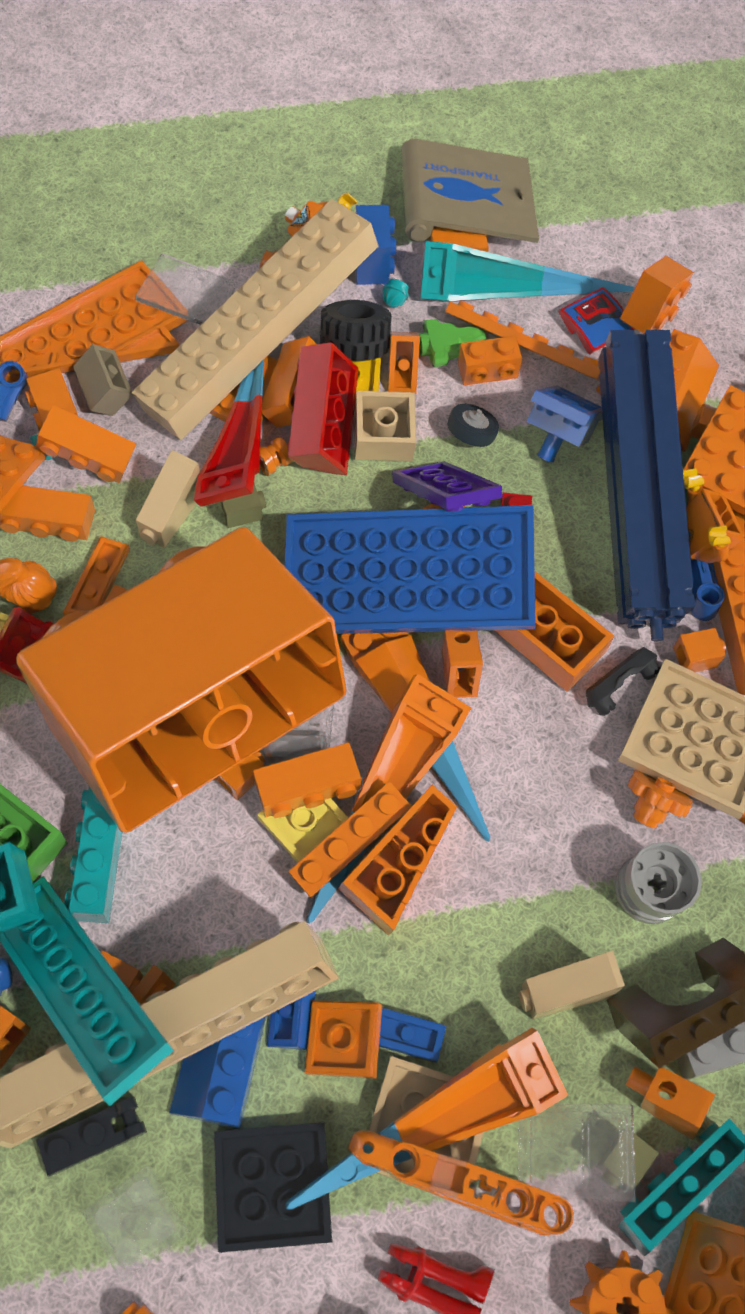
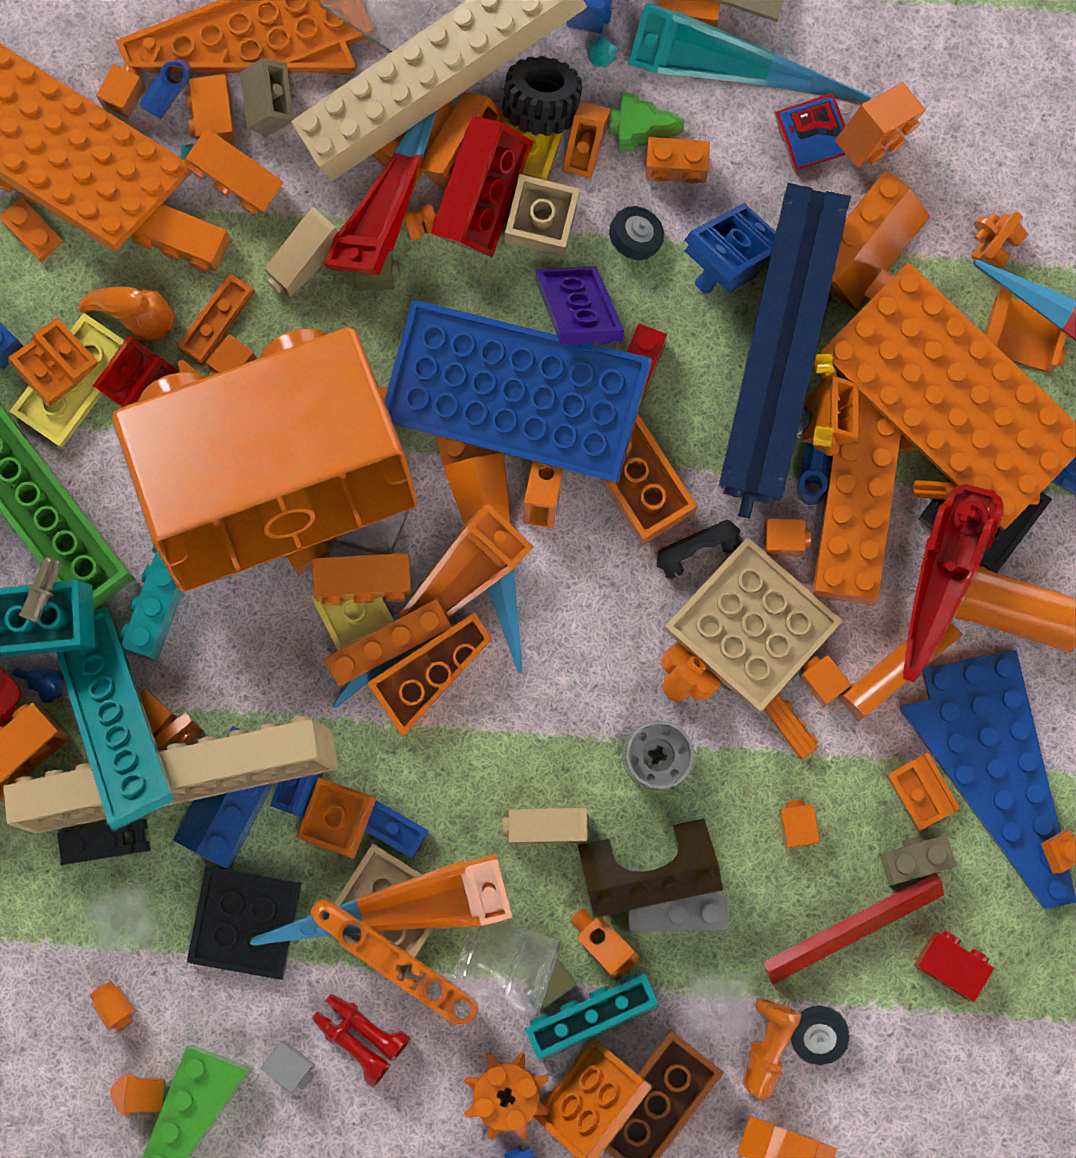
camera: 25 degrees right, 15 degrees up
(536, 344) = (713, 130): orange plate -> none

